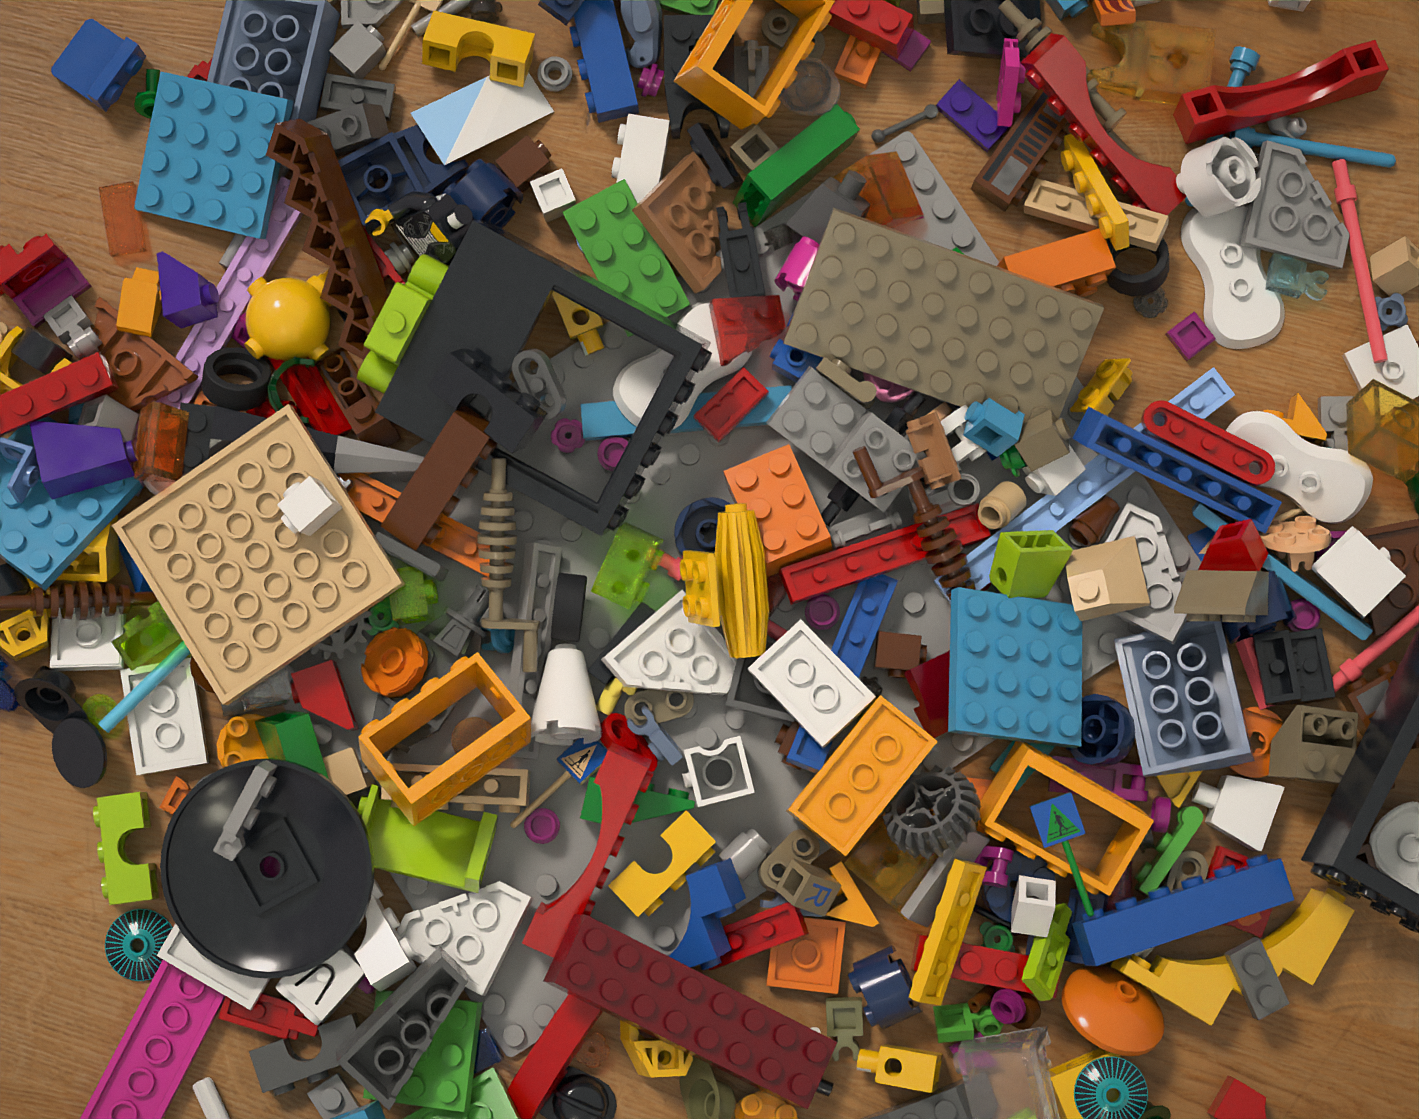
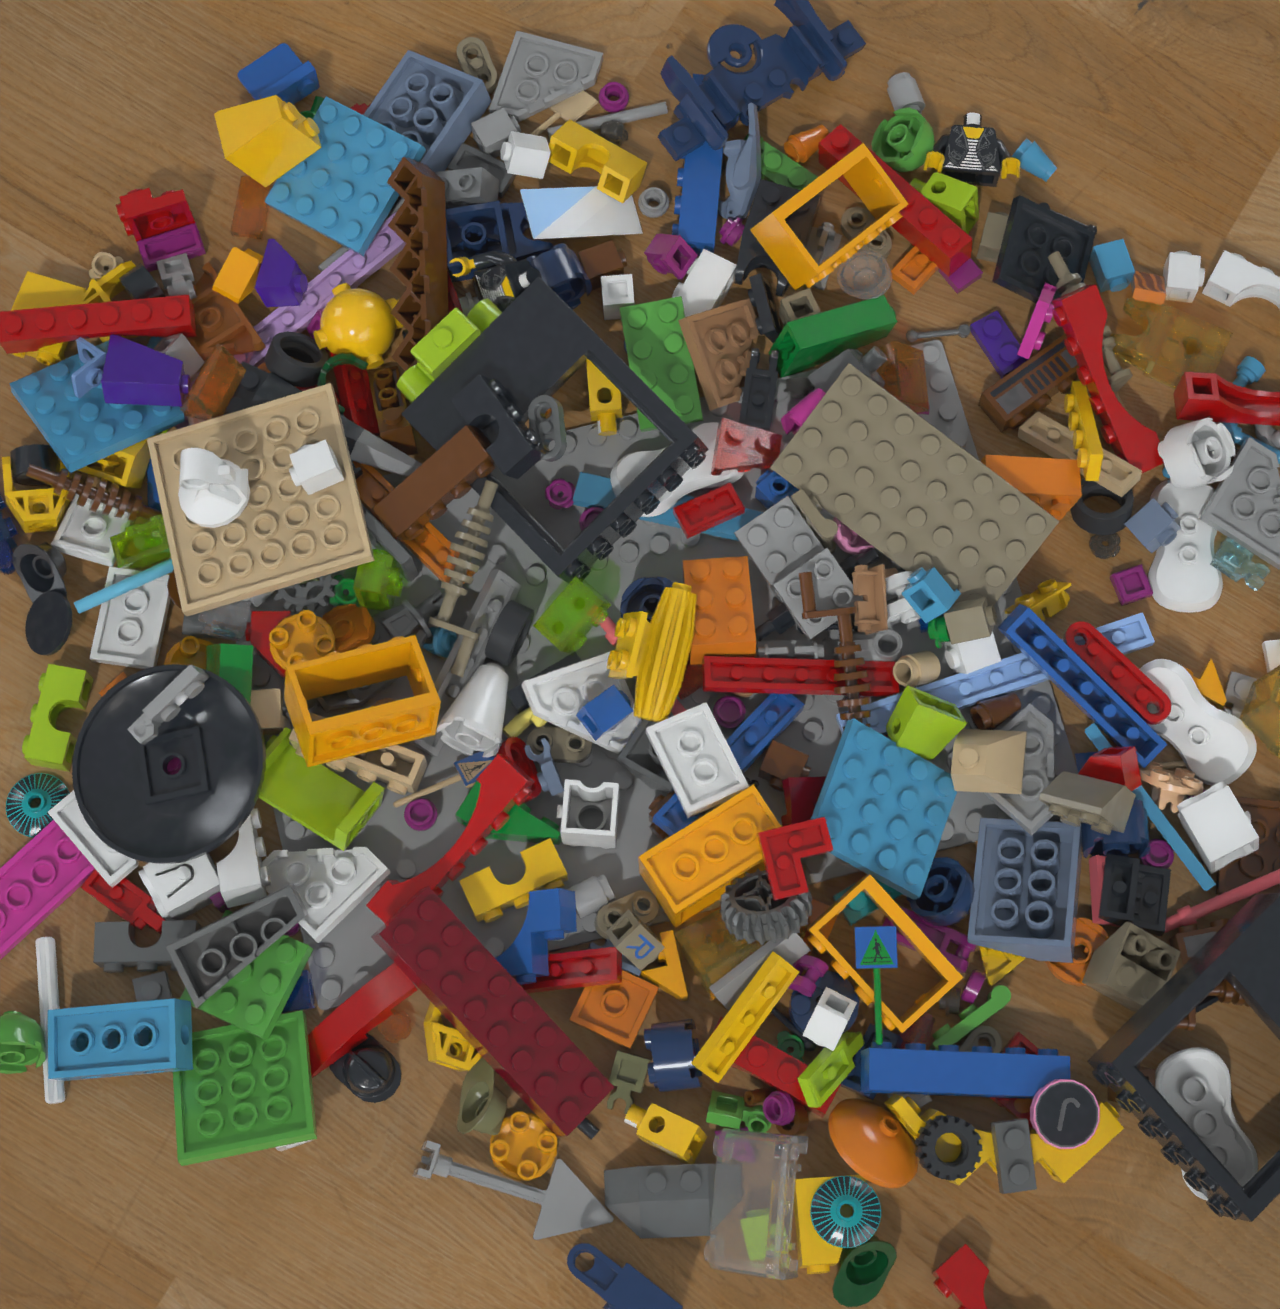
camera: 20 degrees right, 10 degrees down
(95, 701) = (76, 589): clear neon green plate -> none
(114, 143) = (266, 137): none -> yellow slope
(208, 565) = (211, 488): none -> white piece
(357, 691) = (301, 638): none -> light orange dish
(400, 67) = (525, 154): none -> white brick
(594, 131) = (665, 257): none -> magenta brick
(699, 661) = (605, 712): none -> blue brick
(935, 755) = (784, 849): none -> red plate
(1196, 267) = (1154, 525): none -> sand blue brick
(1212, 995) = (969, 1147): none -> black tyre
(1240, 808) = (1047, 1004): white torso -> none
(1294, 919) = (1065, 1113): none -> black tile

